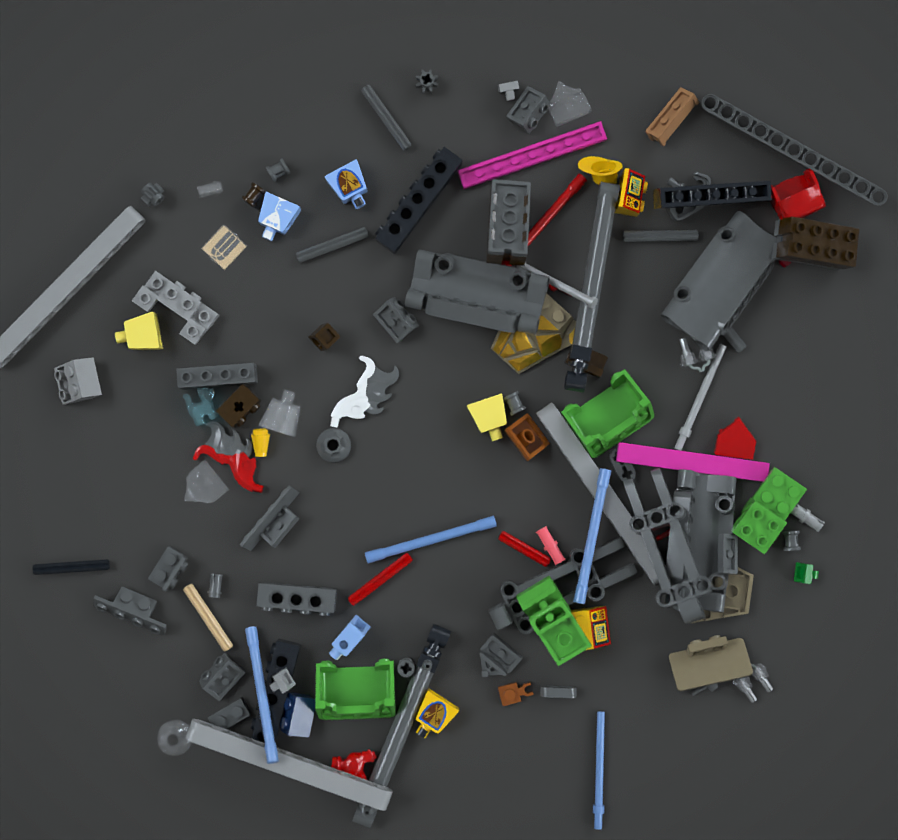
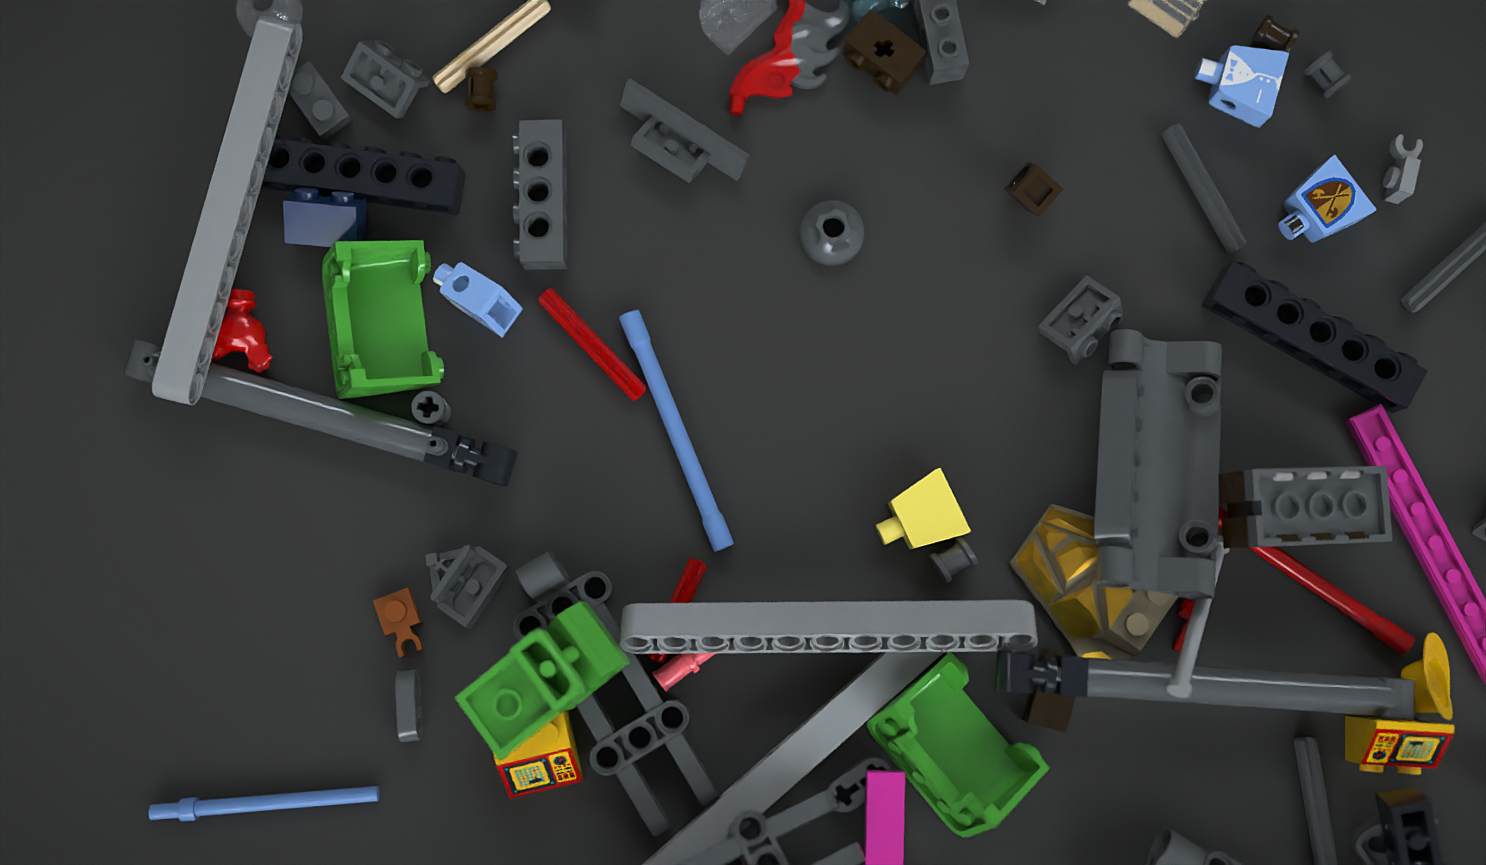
camera: 85 degrees right, 5 degrees down
(215, 585) = (550, 48): dark grey pin -> none
(234, 625) = (481, 89): none -> dark brown bush
(260, 441) = (822, 99): yellow cone -> none
(270, 745) = (258, 165): medium blue piece -> none
(282, 415) = (876, 131): clear torso -> none
(282, 681) = (383, 179): light grey tile -> none
(338, 141) = (1402, 177): none -> light grey plate
(369, 393) = (933, 286): piece -> none
(434, 713) = (348, 472): torso -> none
(527, 437) = (894, 579): dark orange slope -> none
(542, 473) = (828, 627): none -> light grey beam
(582, 586) = (817, 747): medium blue piece -> none

